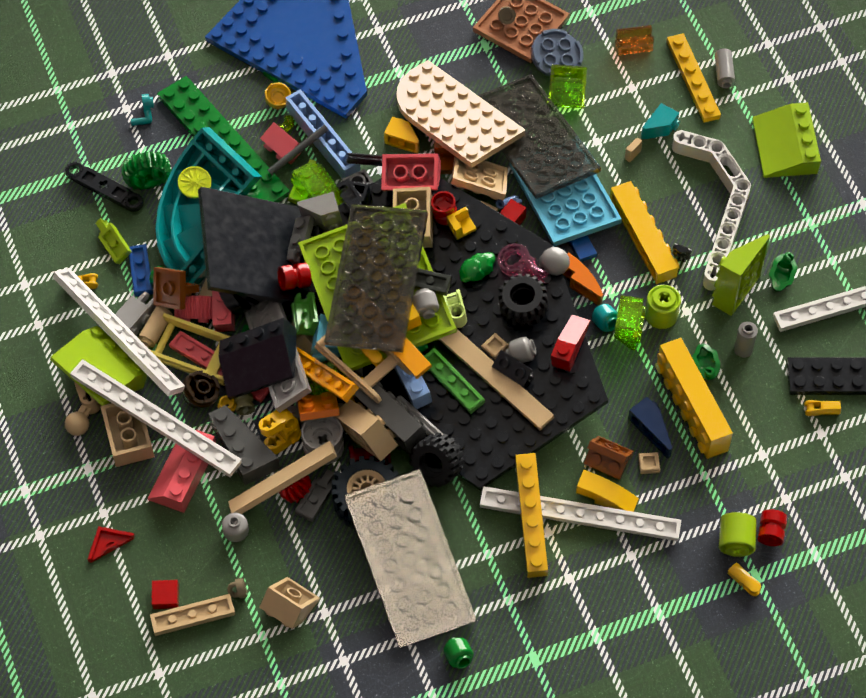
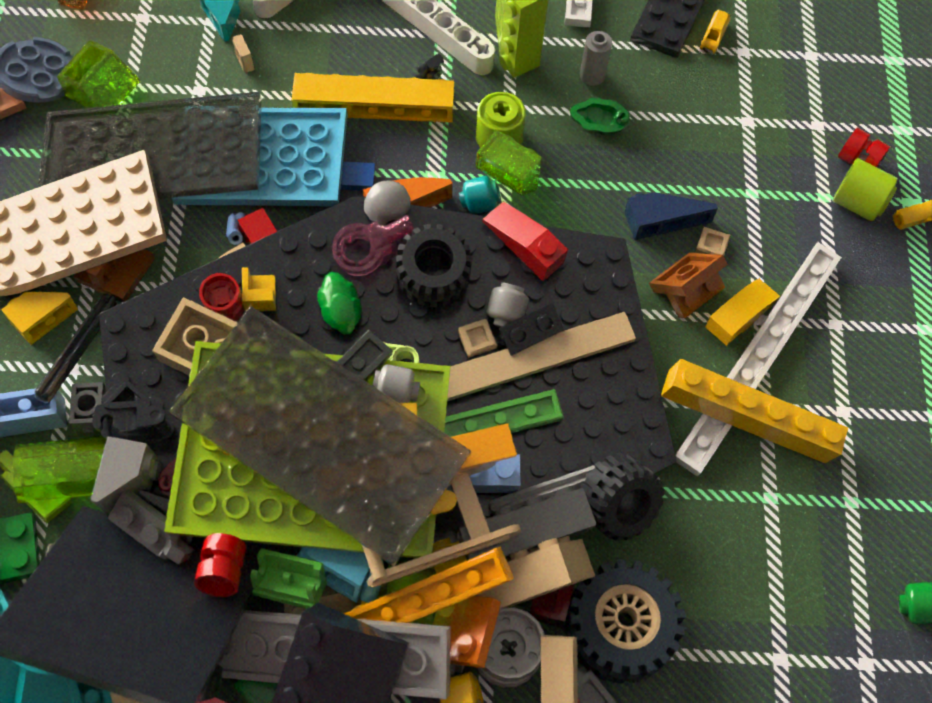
camera: 70 degrees left, 5 degrees up
(410, 171) = (135, 316): coral slope -> none
(410, 559) = (764, 605): clear smoke plate -> none
(481, 179) = (189, 239): tan plate -> none
(693, 398) = (654, 148): yellow brick -> none

